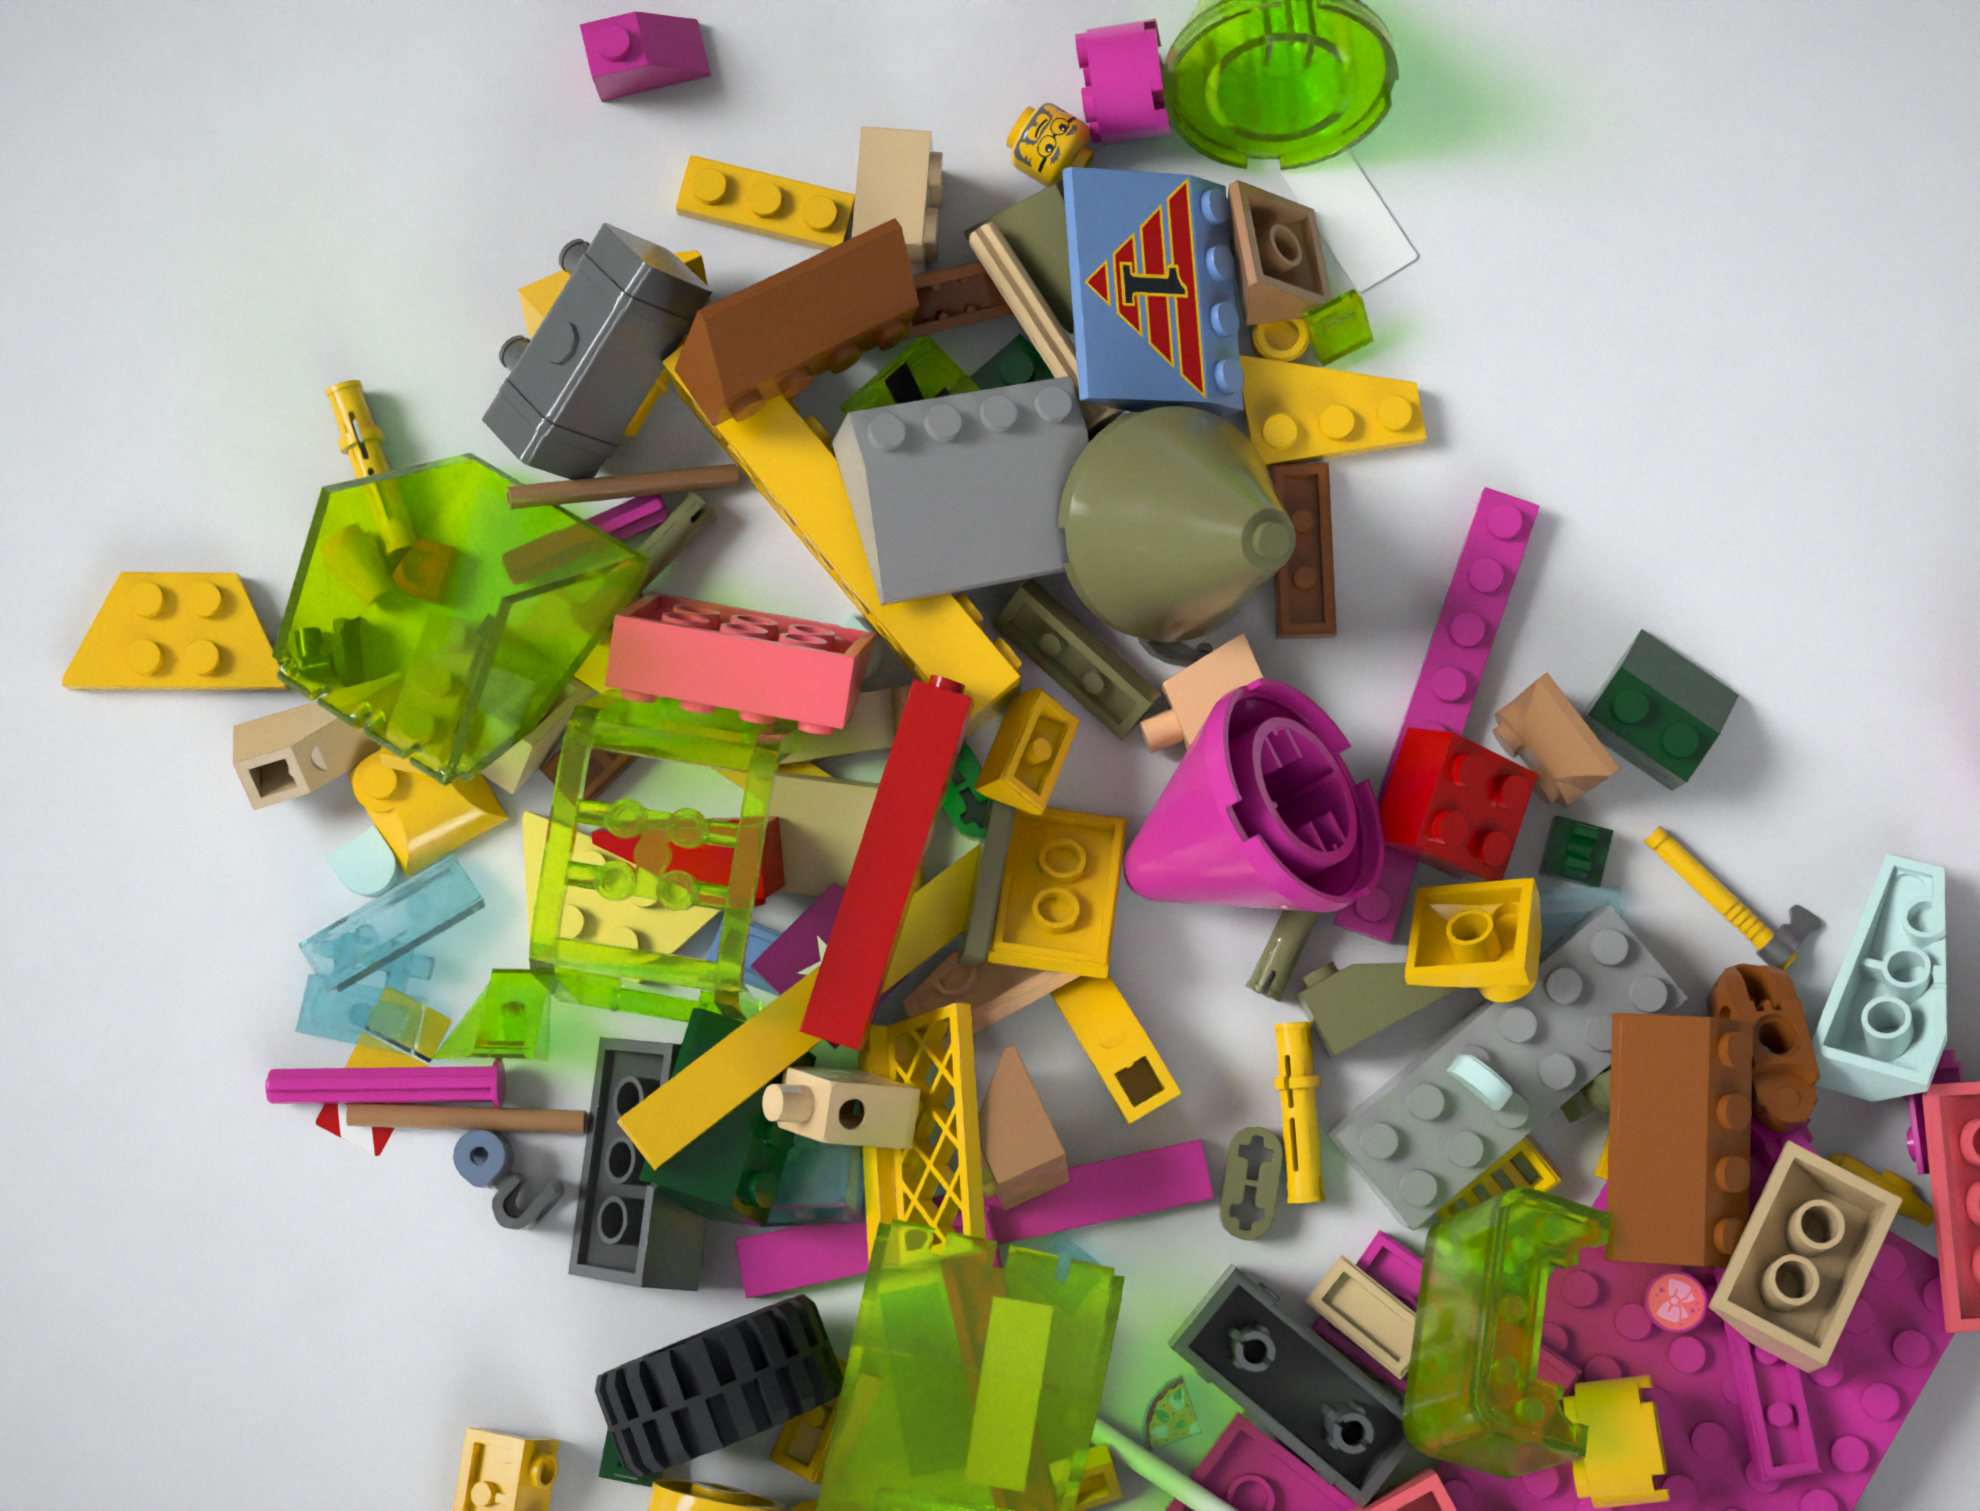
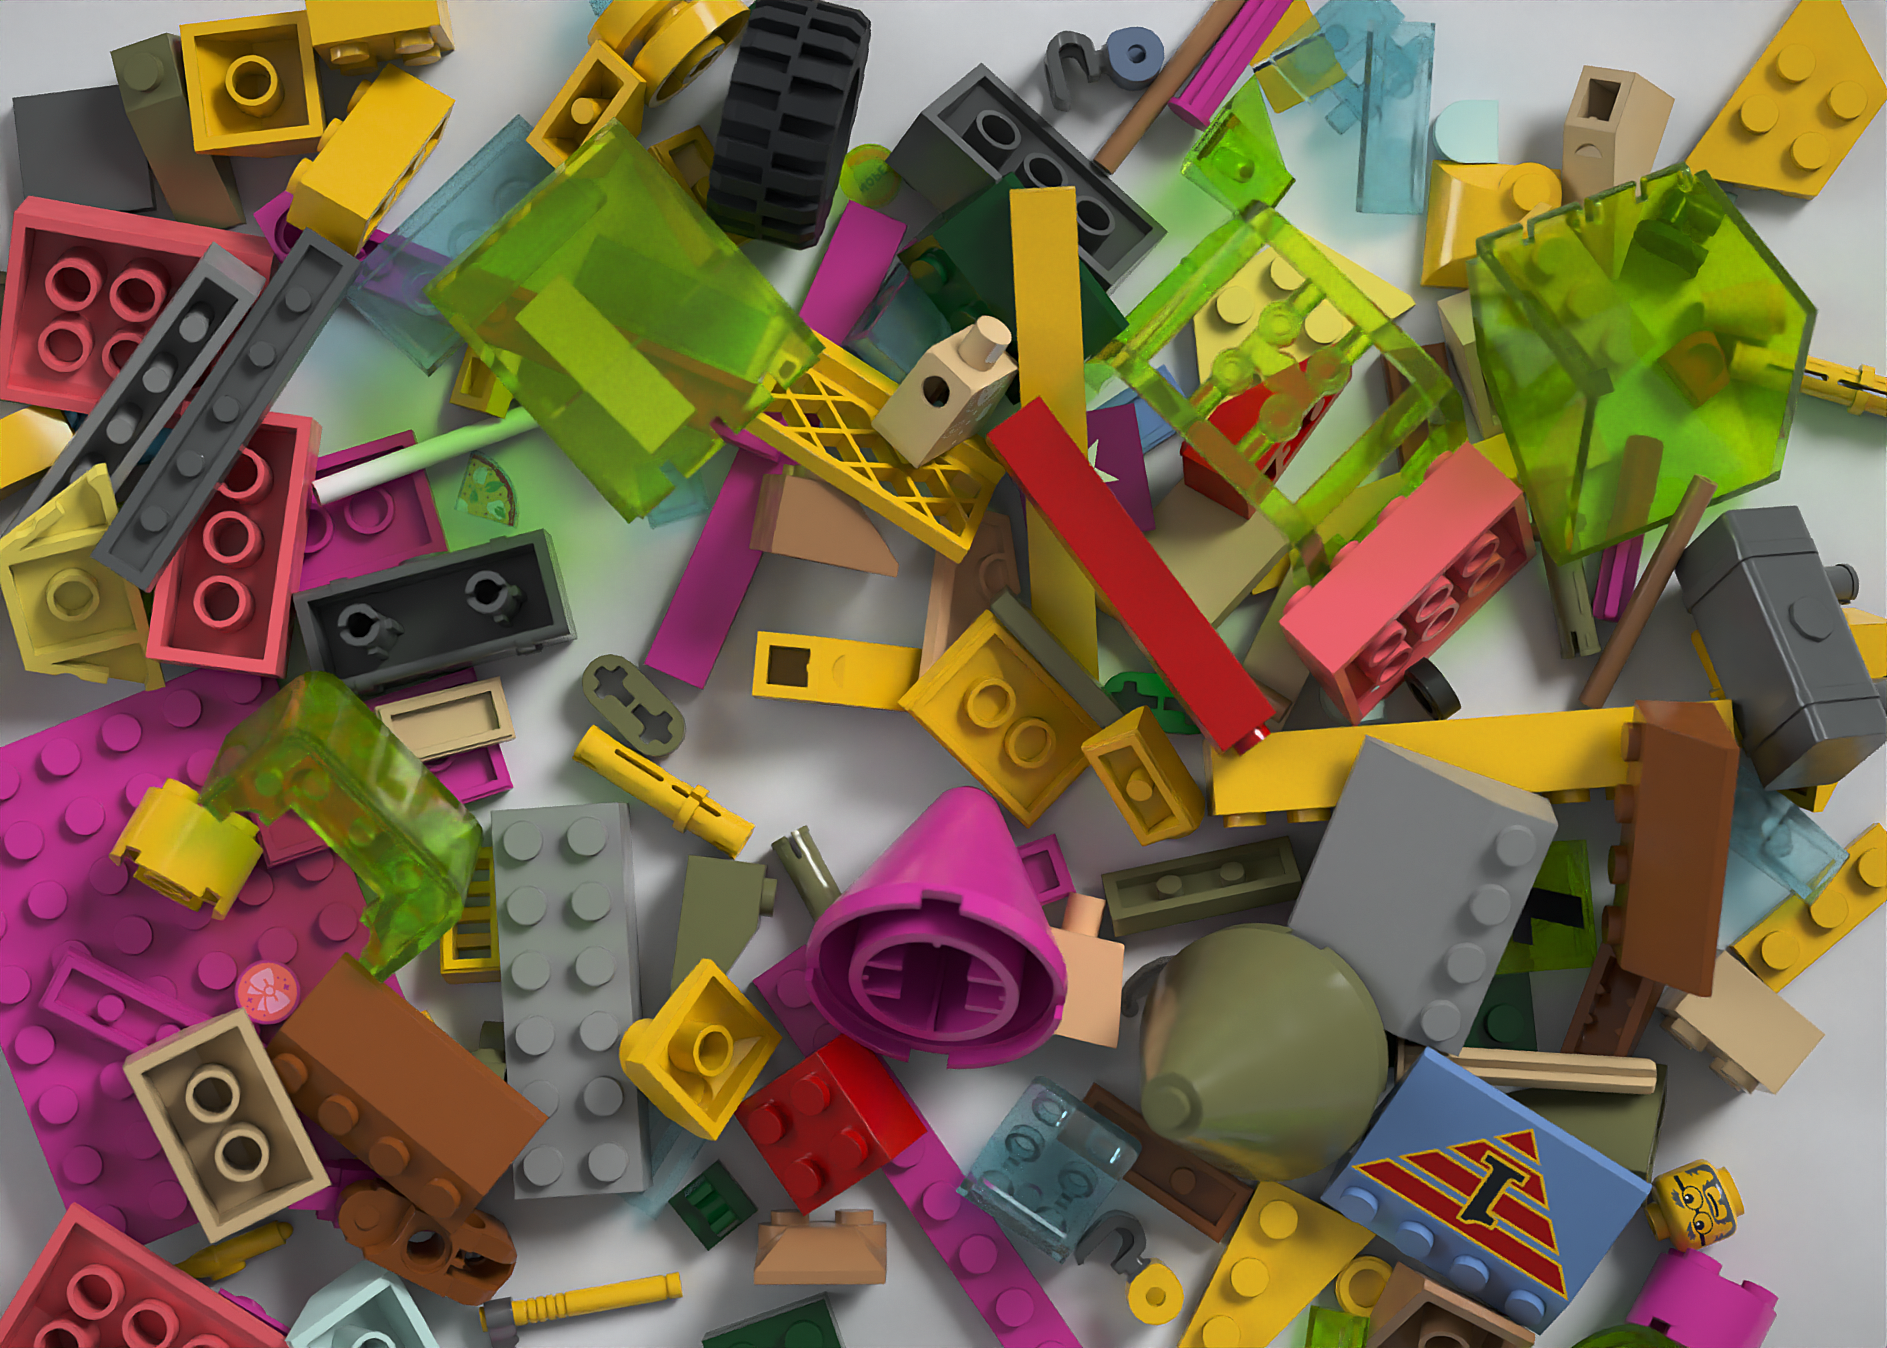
camera: 120 degrees right, 5 degrees up
(718, 1296) = (868, 177): none -> clear neon green tile
(738, 251) = (1782, 840): none -> clear light blue slope
(808, 594) = (1432, 690): none -> pearl dark grey tile
(1146, 784) = (1046, 869): none -> dark pink tile
(1368, 621) = (1049, 1167): none -> clear light blue bracket
(1394, 491) = (1150, 1285): none -> leg
(1481, 1081) = (574, 958): light aqua tile -> none

